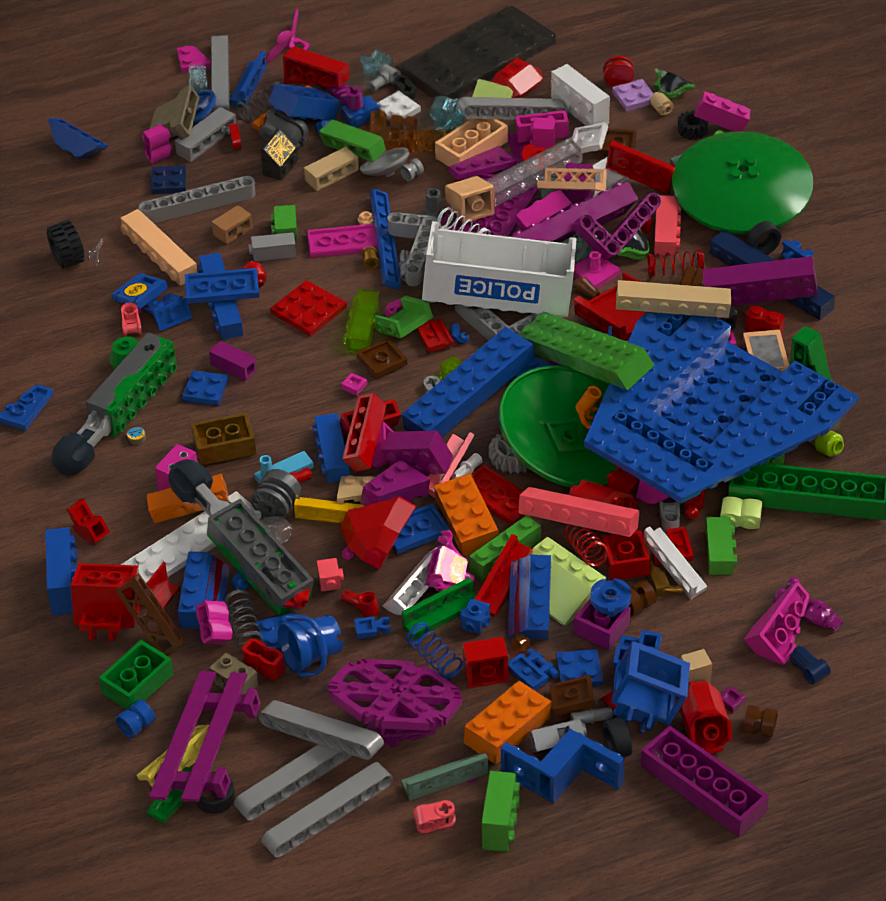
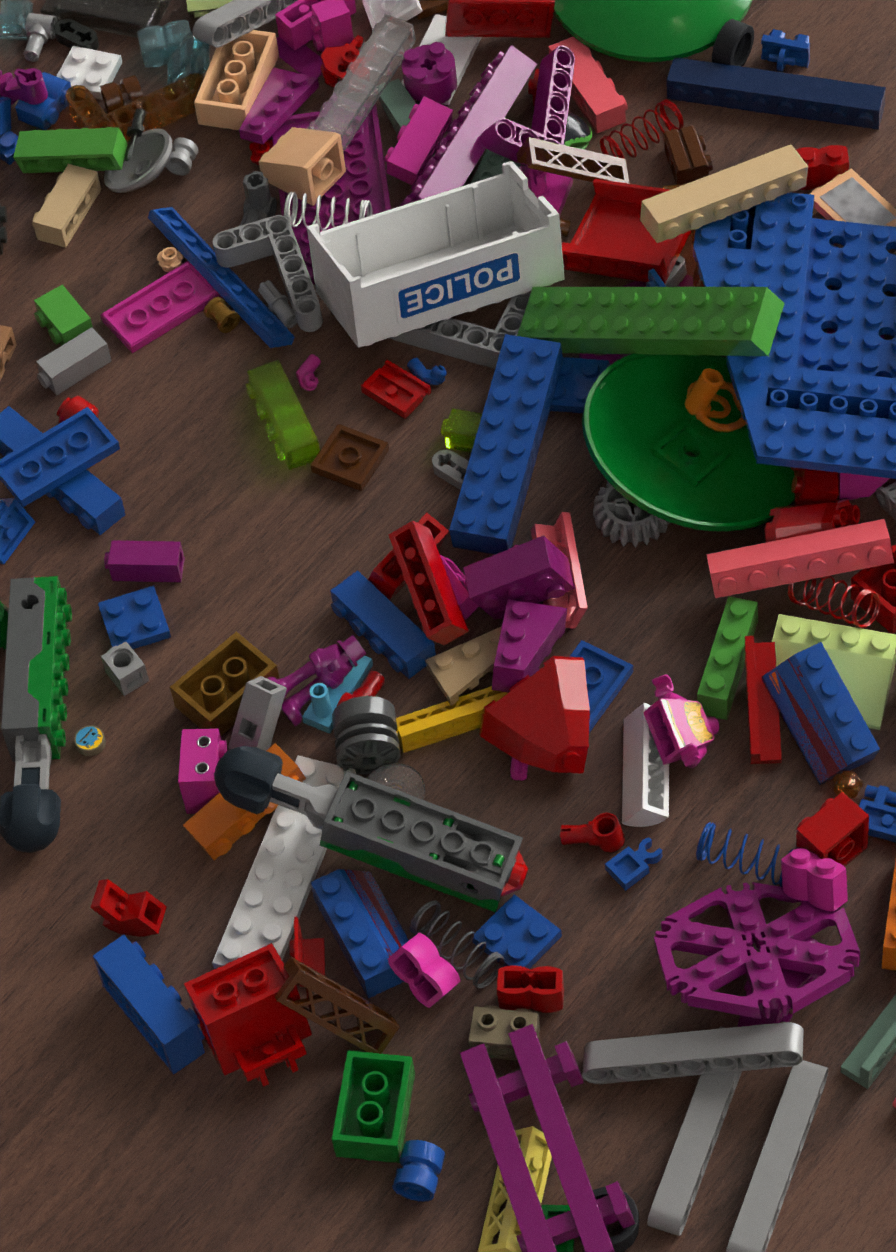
camera: 25 degrees left, 10 degrees up
(180, 408) = (127, 677): none -> light grey brick
(226, 456) = (258, 714): none -> light grey brick
(238, 582) = (403, 890): blue arm -> none
(283, 450) = (328, 665): none -> magenta piece
(308, 308) = (188, 430): red plate -> none
(308, 642) = (579, 932): blue piece -> none
(329, 574) = (524, 816): coral brick -> none
(354, 384) = (340, 514): dark pink plate -> none
(394, 144) = (135, 130): none -> pearl dark grey piece
(414, 314) = (342, 384): bright green panel -> none
(439, 612) = (707, 790): green fence -> none
(455, 675) = (814, 879): none -> dark pink brick
(465, 513) = (642, 632): orange brick -> none
(468, 466) = (587, 560): white axle -> none
(475, 616) = (764, 777): blue brick -> none
(498, 494) = (654, 584): red tile -> none
(560, 183) = (443, 83): light nougat fence -> none
(617, 257) = (572, 161): none -> fence
(765, 280) = (786, 111): magenta brick -> none

